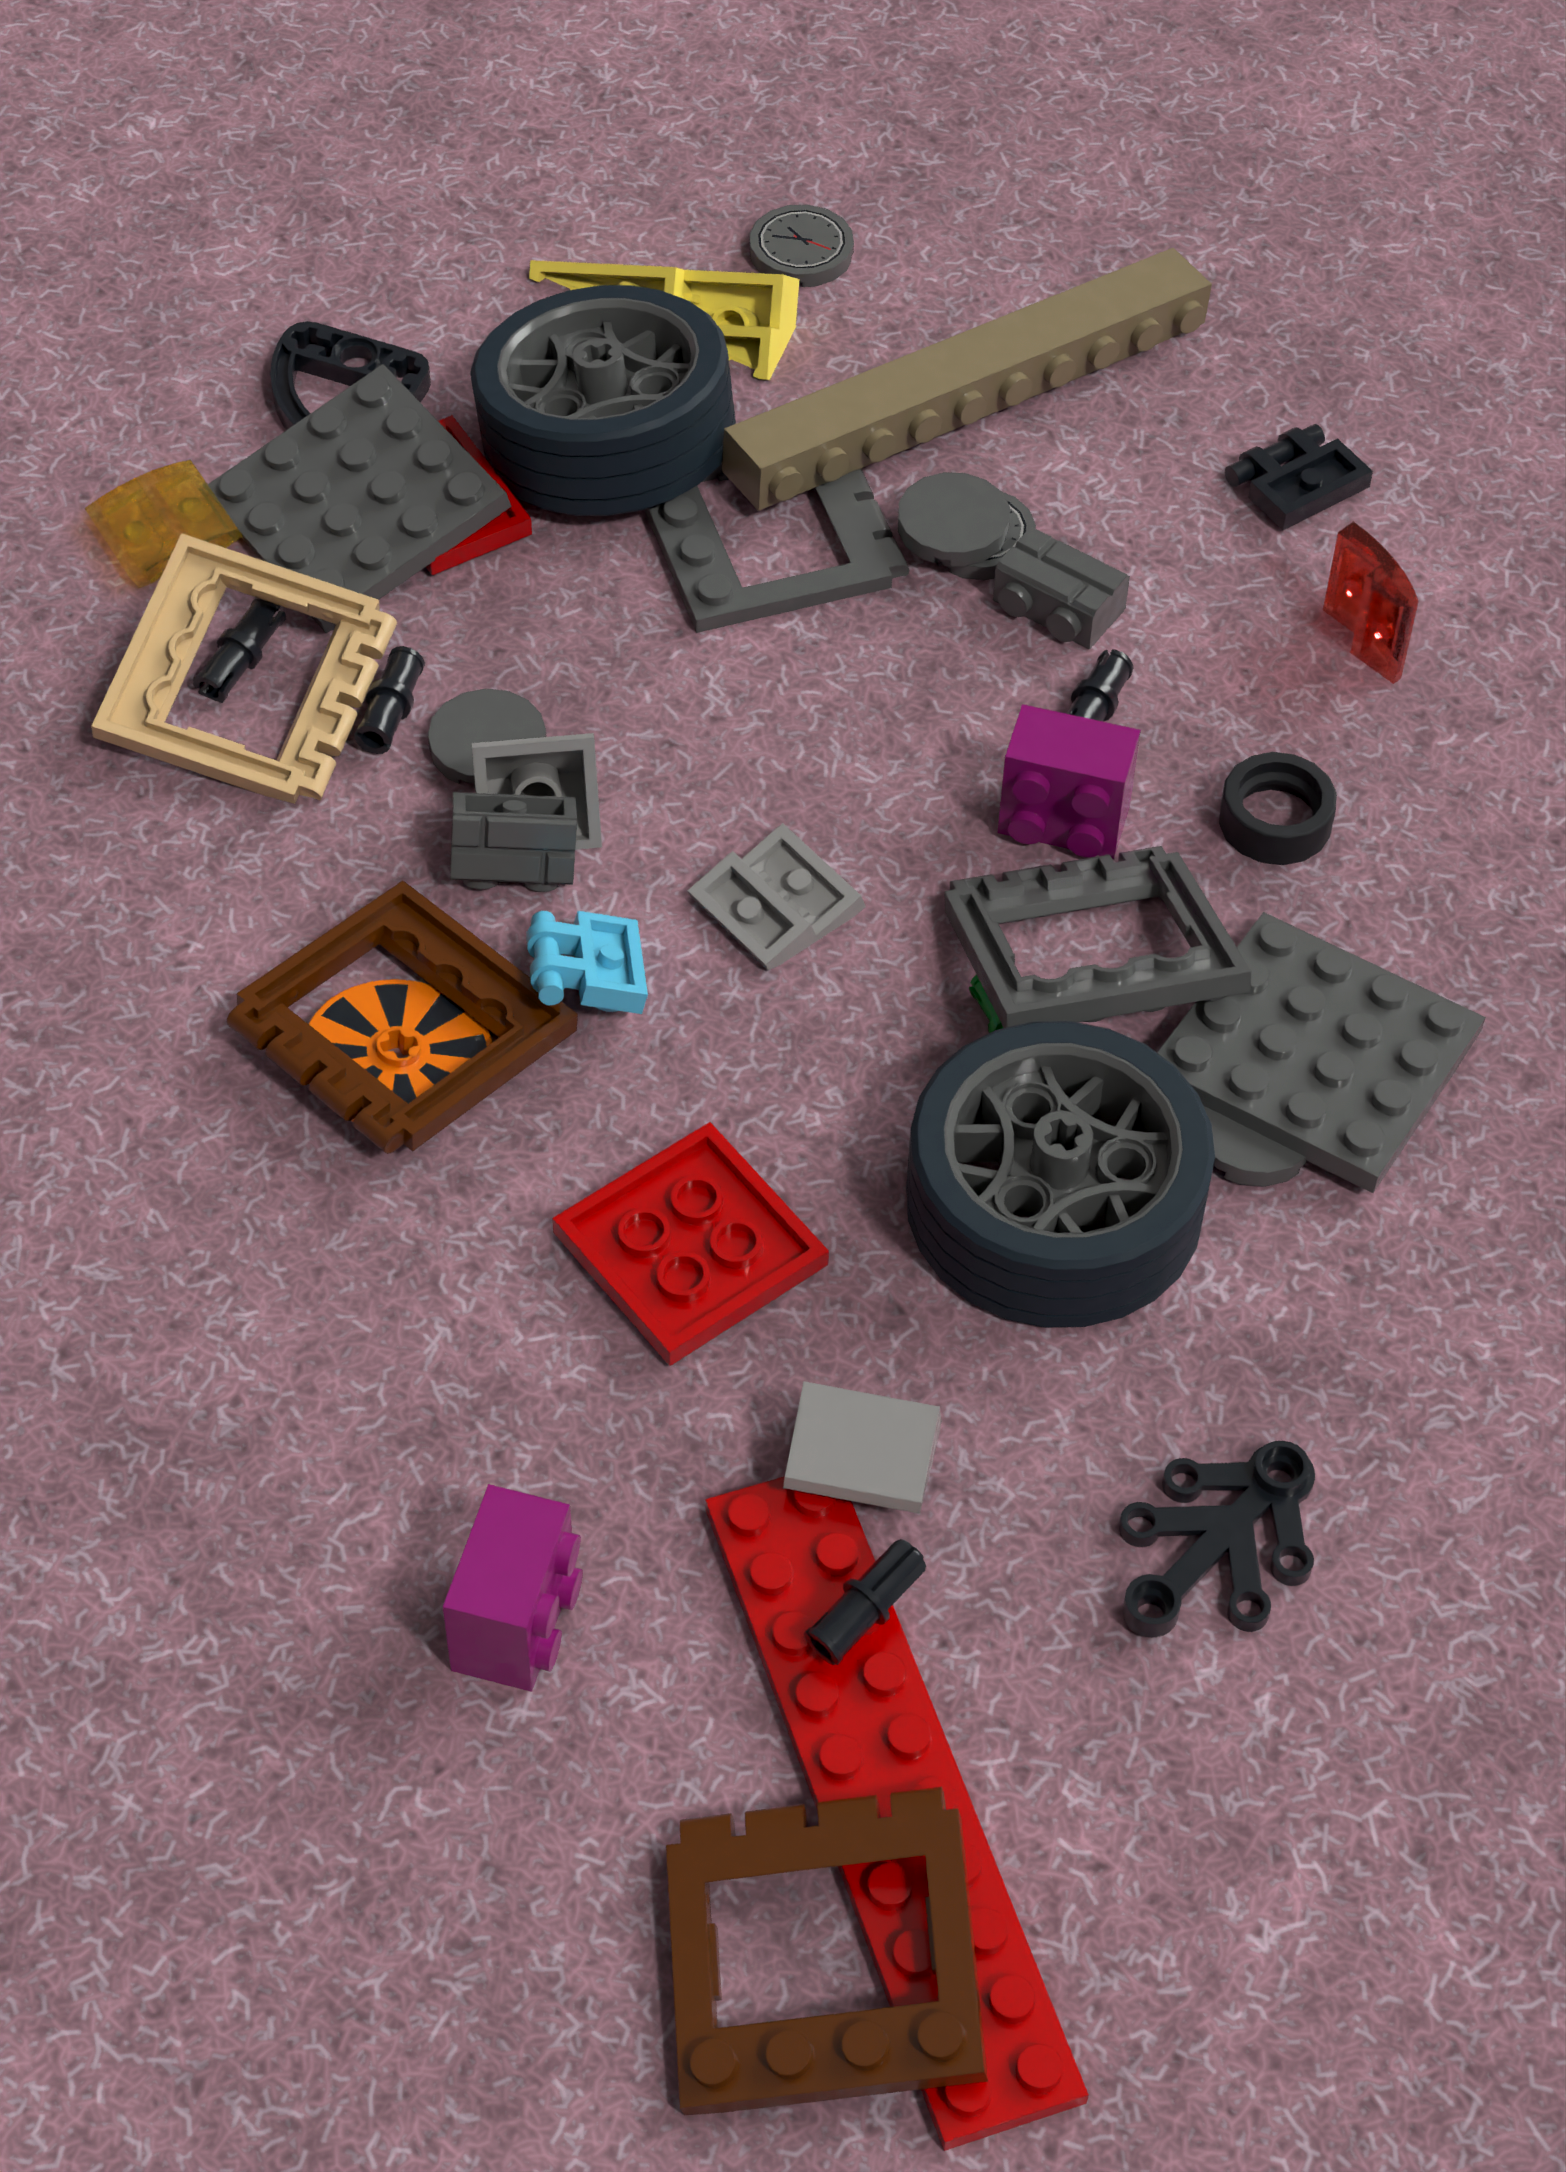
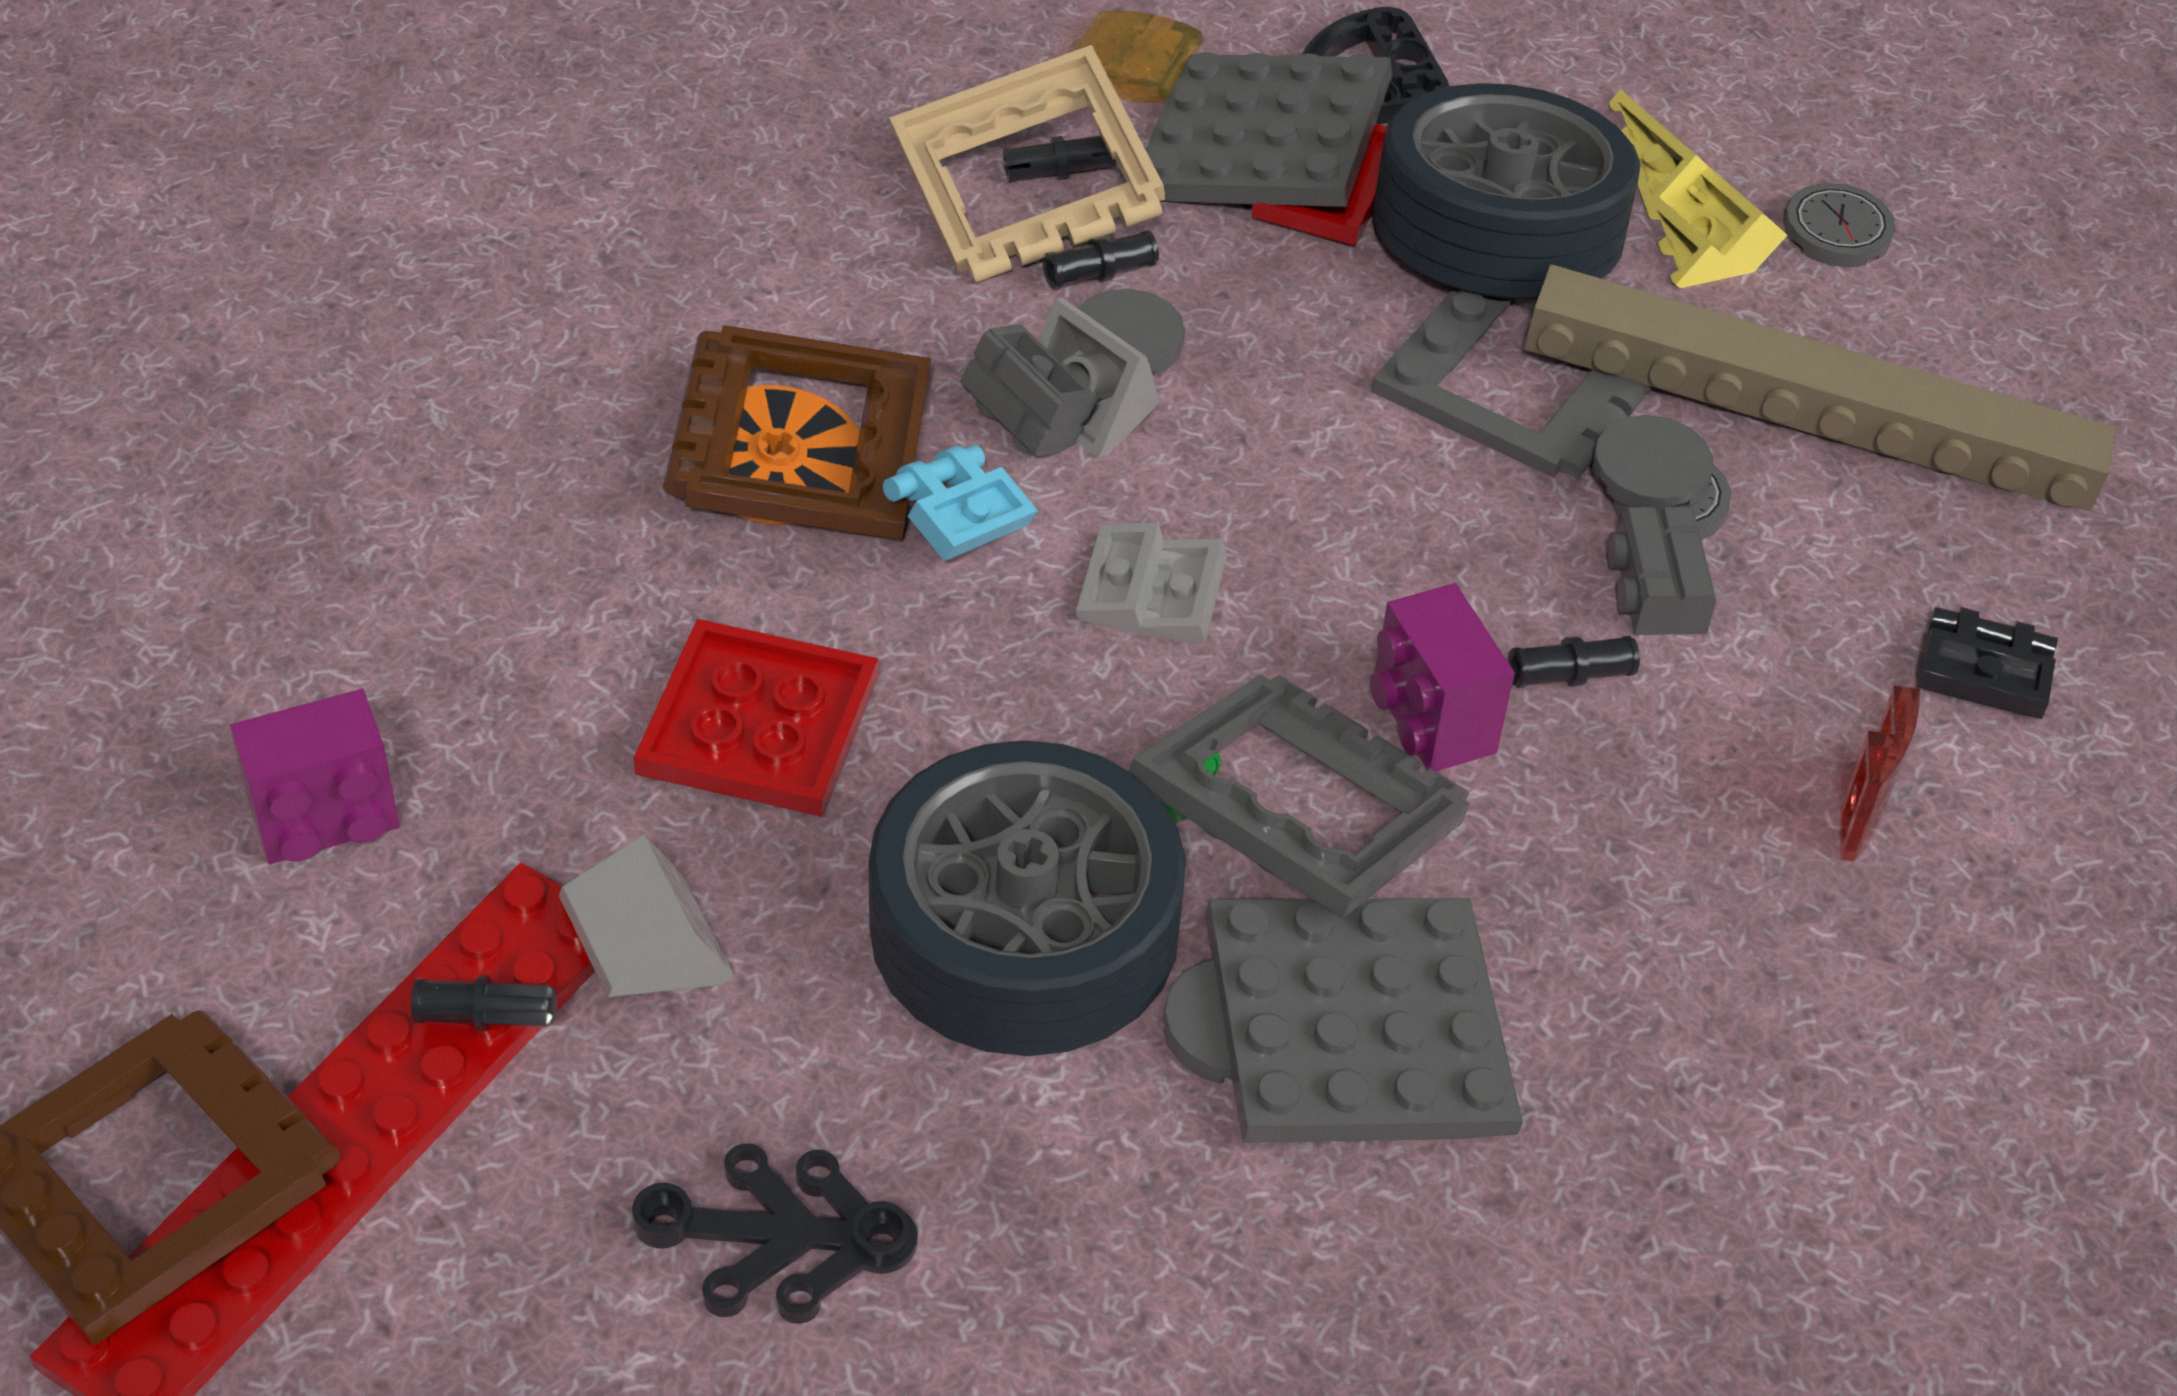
camera: 50 degrees right, 5 degrees down
(1274, 842) = (1585, 883): black tyre -> none

